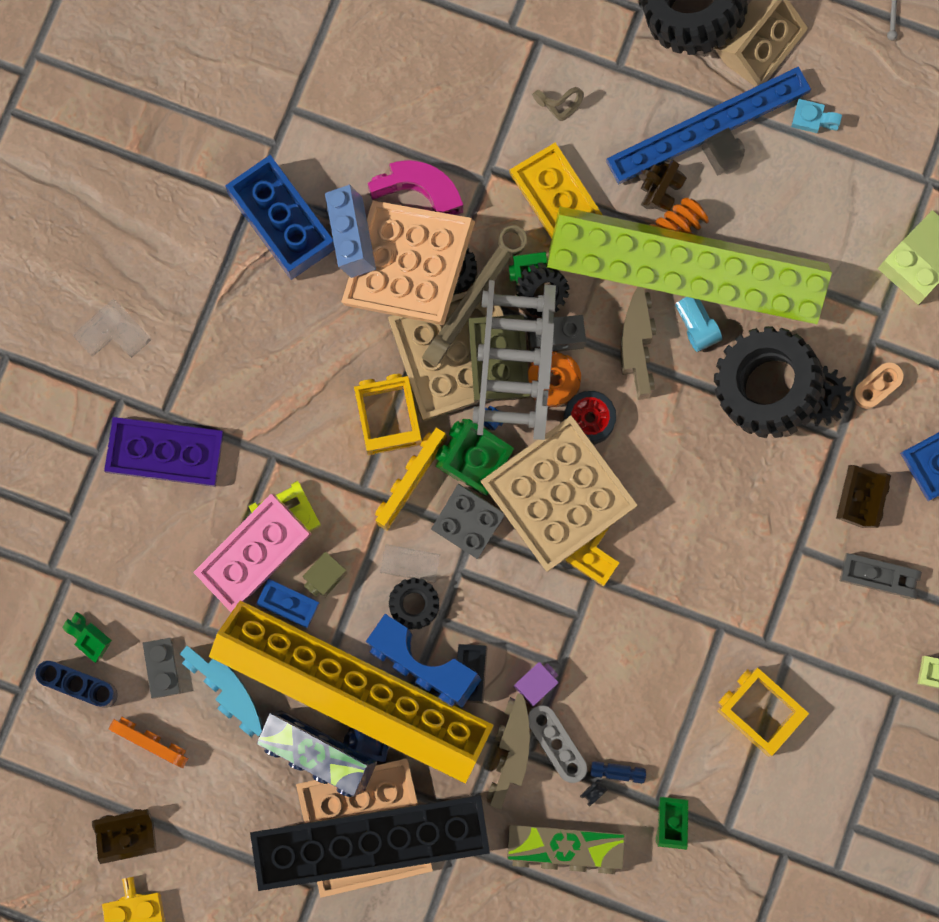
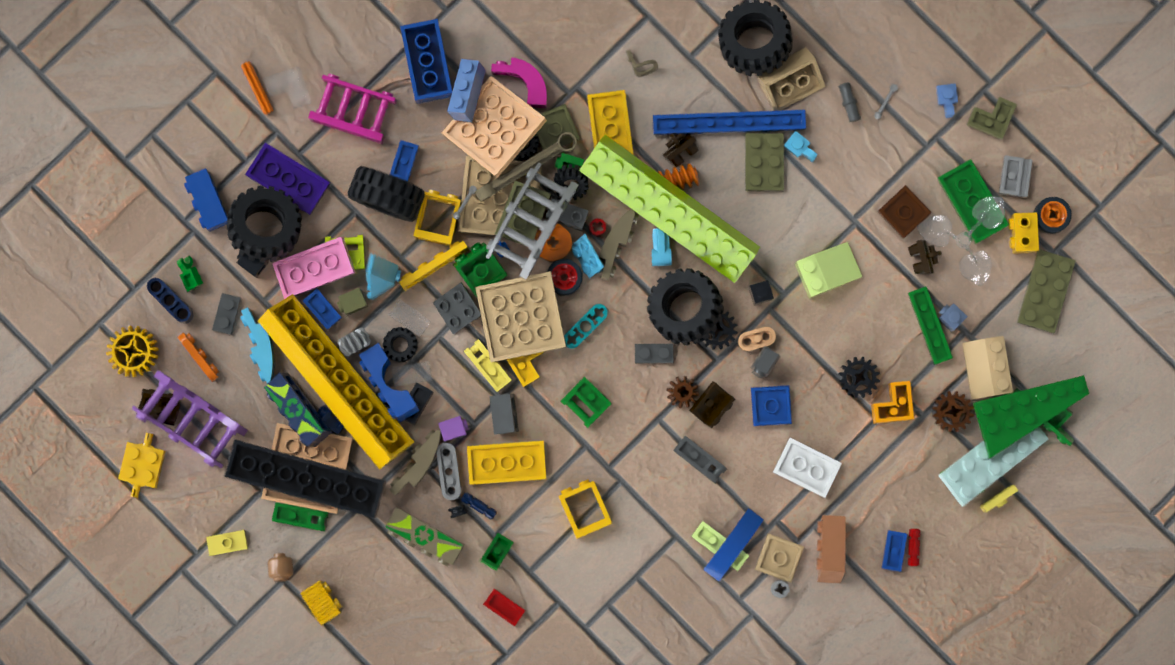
camera: 25 degrees right, 5 degrees up
(52, 763) = (133, 343): none -> yellow gear
(67, 528) = (206, 200): none -> blue brick
(70, 351) = (257, 87): none -> orange axle
(154, 491) = (264, 201): none -> black tyre
(164, 583) = (253, 267): none -> black brick
(175, 808) = (196, 405): none -> medium lavender fence
(225, 344) = (338, 121): none -> dark pink fence
(306, 409) = (386, 193): none -> black tyre
(308, 360) = (404, 160): none -> blue plate
(350, 522) = (381, 276): none -> medium azure wedge
(351, 627) = (354, 342): none -> light grey gear
(383, 898) = (299, 516): none -> green plate
(417, 358) = (472, 189): none -> light grey hinge
(447, 636) = (411, 373): none -> clear tile
(489, 222) = (557, 122): none -> olive plate
(550, 584) = (491, 371): none -> light yellow plate
(594, 633) = (504, 414): none -> dark grey hinge
(596, 328) = (597, 221): none -> red bush
(608, 375) = (587, 256): none -> medium azure hinge
(628, 697) = (506, 462): none -> yellow plate
(661, 453) = (579, 340): none -> teal beam
(698, 559) = (590, 397): none -> green plate
(716, 894) = (504, 607): none -> red tile
(724, 152) = (730, 144): clear smoke brick -> none
(753, 464) = (653, 353): none -> dark grey plate
(777, 156) = (764, 161): none -> olive plate
(820, 488) = (688, 388): none -> reddish brown gear
(849, 33) = (849, 102): none -> dark grey pin
(855, 323) = (761, 292): none -> black brick
(906, 409) = (764, 362): none -> dark grey brick

